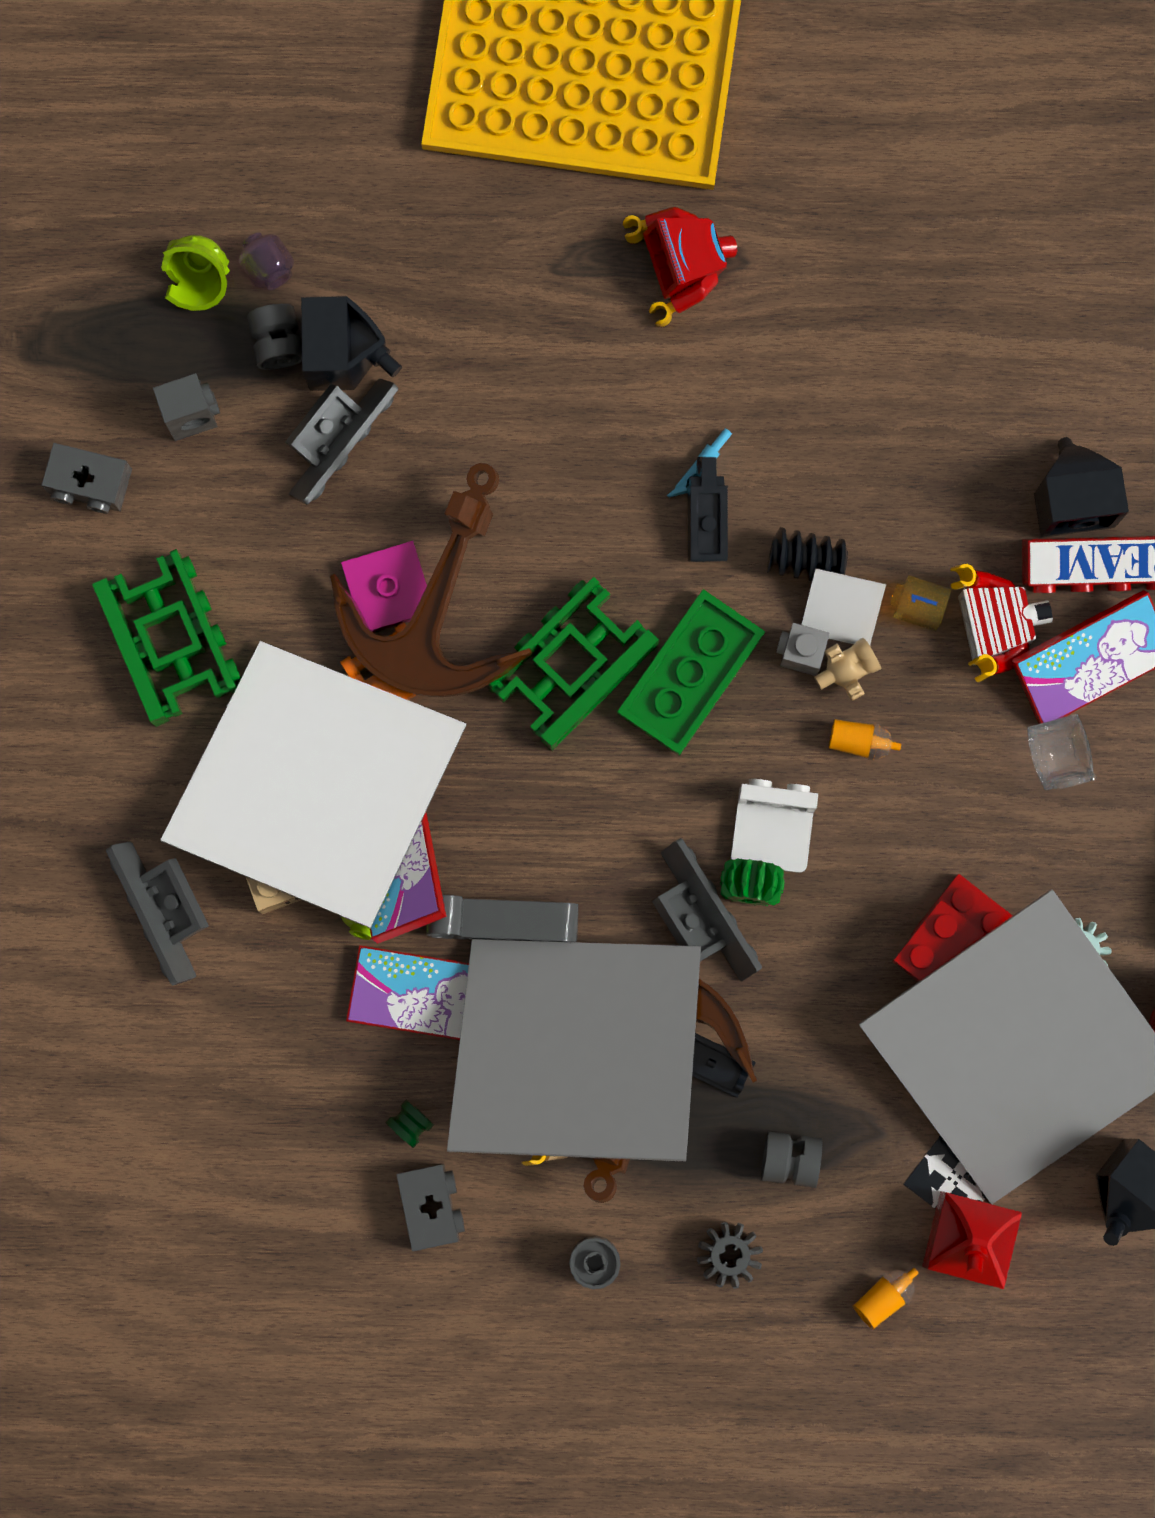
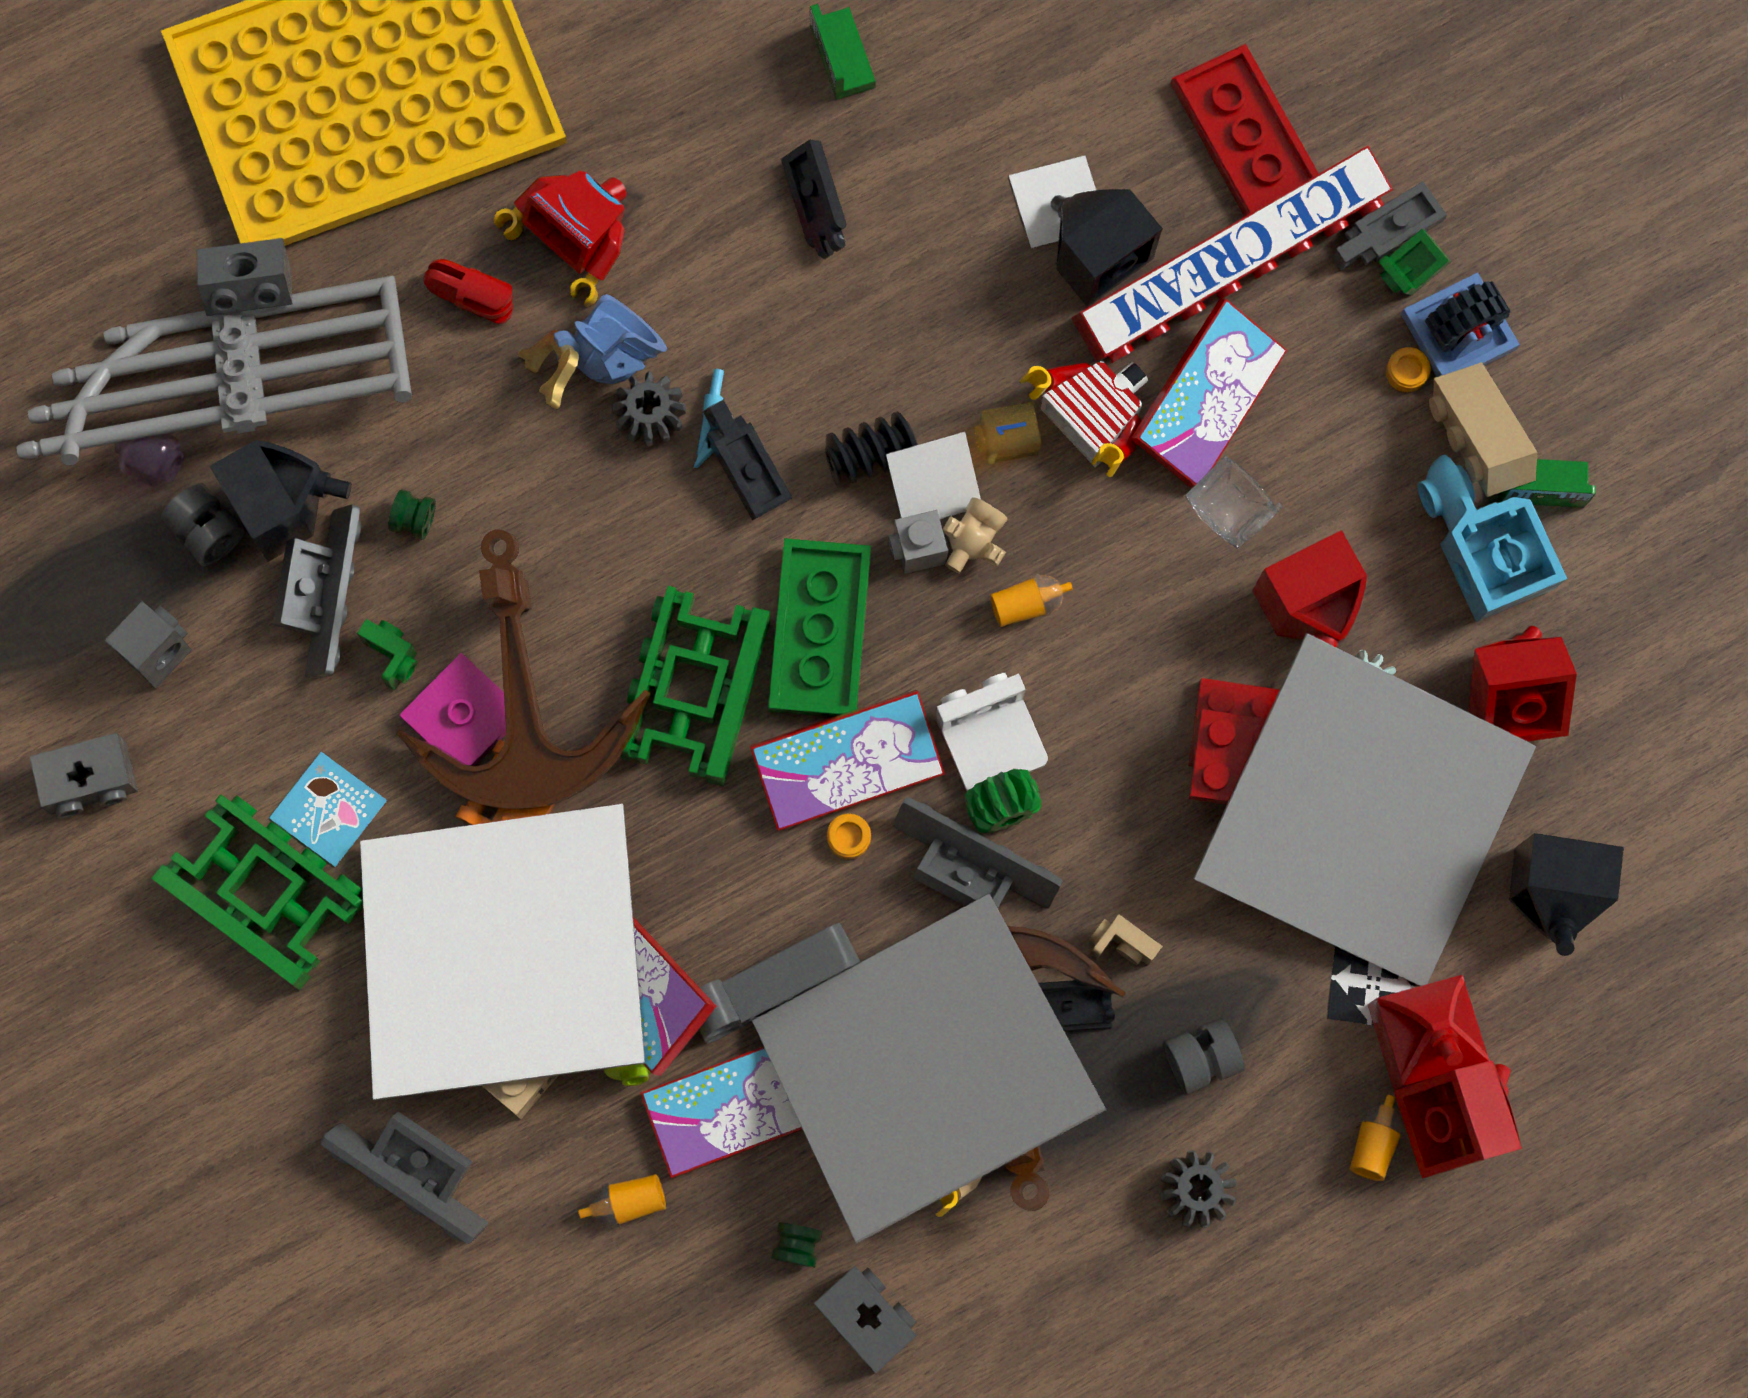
camera: 35 degrees left, 5 degrees down
(198, 270) = (84, 502): lime helmet -> none
(251, 603) = (328, 809): none -> medium azure sticker
(303, 1019) = (625, 1201): none -> light orange piece
(363, 501) = (388, 641): none -> green bracket
(367, 230) = (237, 367): none -> light grey piece
(411, 162) = (244, 277): none -> dark grey brick
(435, 415) = (412, 514): none -> dark green wheel
(575, 265) = (470, 290): none -> red arm
(595, 1262) = (1067, 1275): dark grey wheel -> none
(622, 842) = (848, 836): none -> light orange tile
(651, 367) = (604, 347): none -> medium blue helmet
(651, 420) = (663, 415): none -> dark grey gear
(653, 784) = (847, 760): none -> tile
(788, 1044) = (1132, 942): none -> tan bracket
(878, 337) = (815, 198): none -> black hinge
(957, 1318) = (1459, 1118): none -> red piece
(965, 232) = (841, 52): none -> green panel
(1057, 422) = (1037, 188): none -> white sticker
(1082, 859) = (1314, 591): none -> red piece

